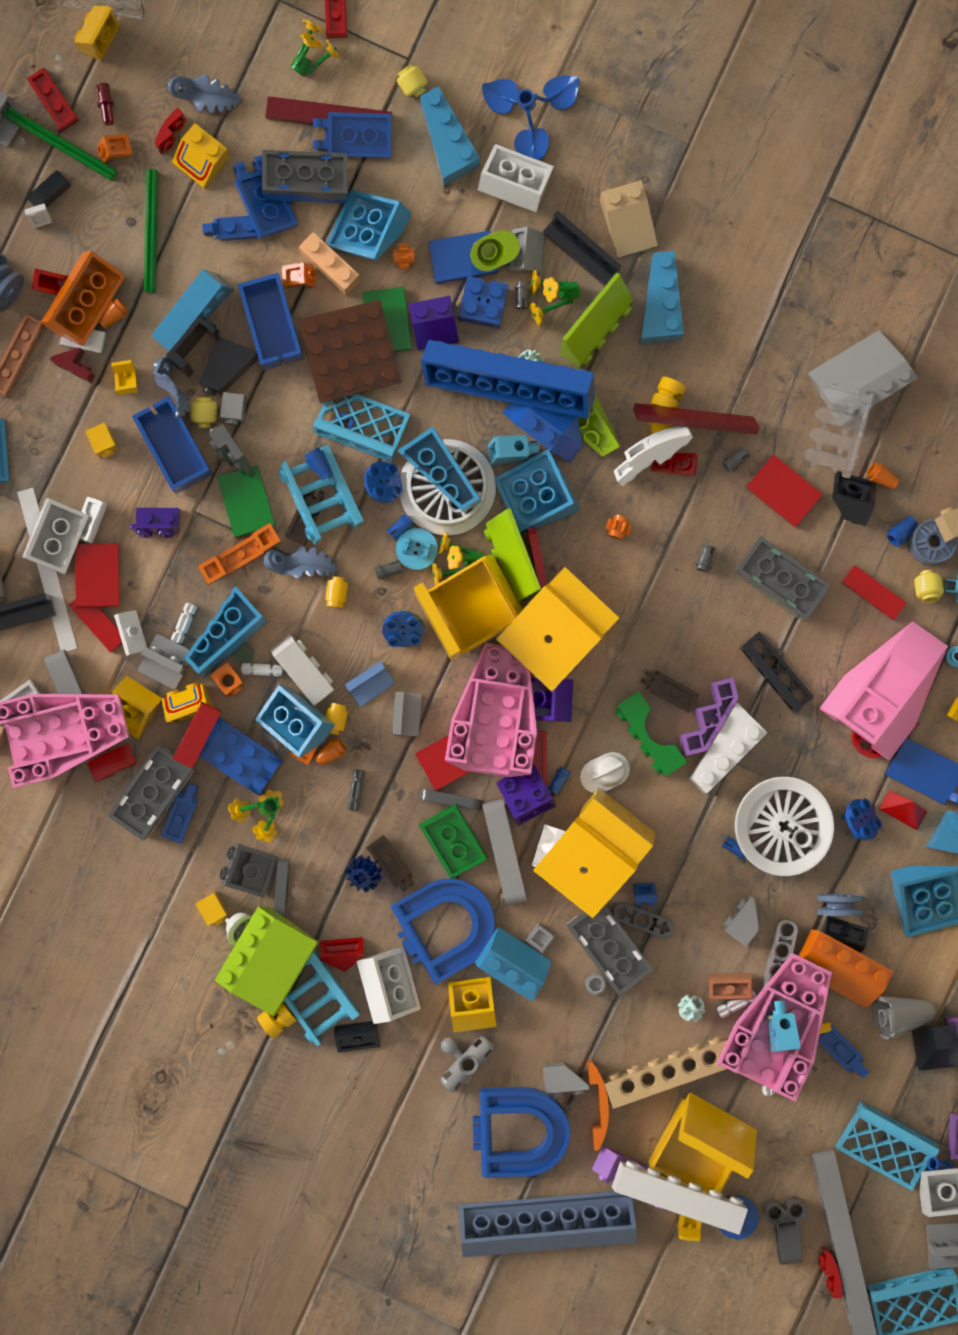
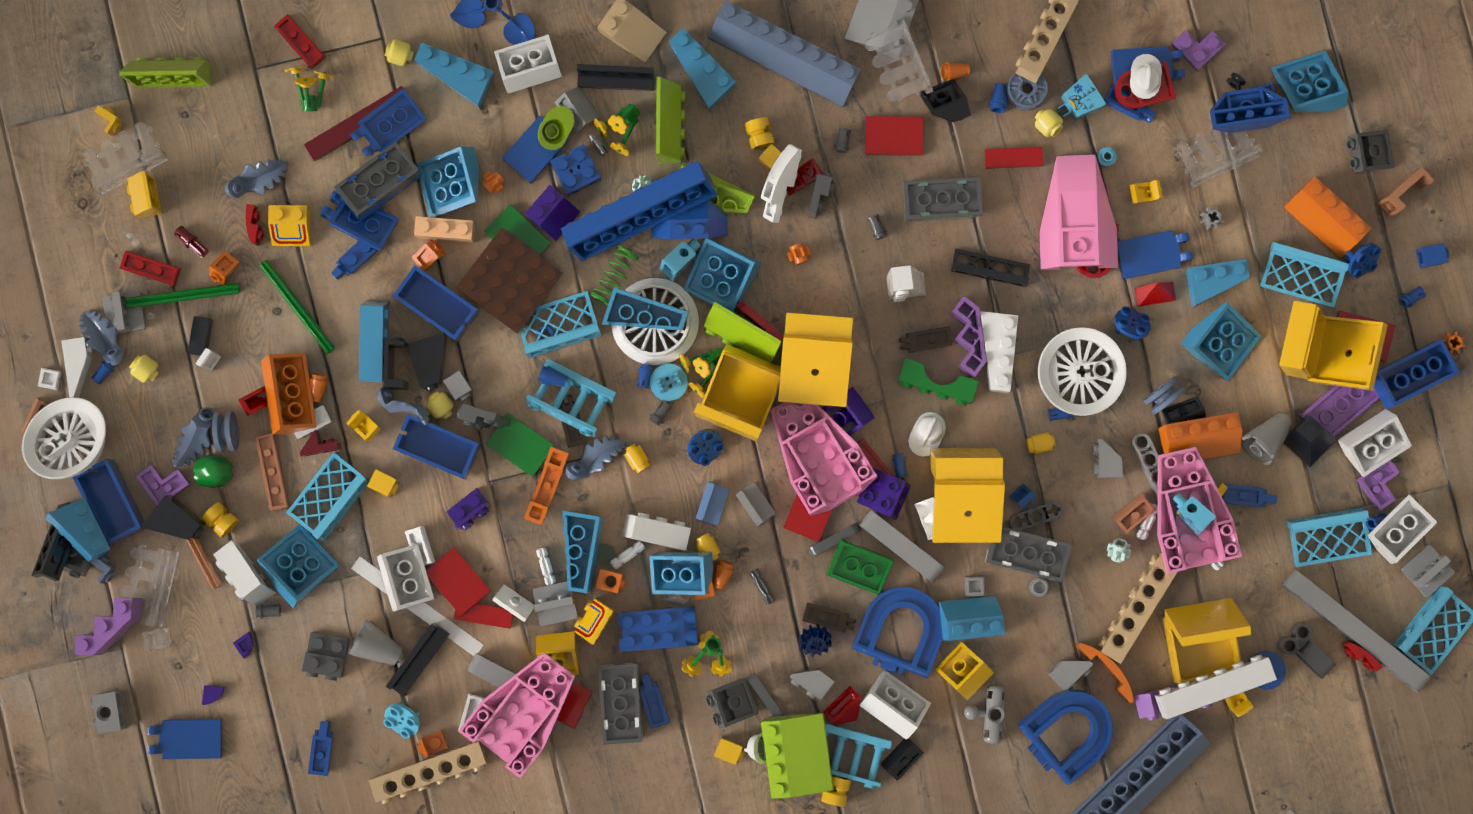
camera: 35 degrees left, 0 degrees up
(46, 432) = (342, 503): none -> medium azure fence
(196, 734) = (621, 636): red tile -> none
(333, 907) = (813, 681): none -> light grey slope
(383, 491) = (610, 348): blue plate -> none
(472, 414) = (628, 254): none -> bright green piece
(682, 488) = (822, 190): none -> dark grey plate
(691, 625) = (905, 283): none -> white wedge
(695, 418) = (792, 134): dark red tile -> none
(697, 859) = (1040, 443): none -> yellow brick
(745, 343) = (784, 53): none -> sand blue slope

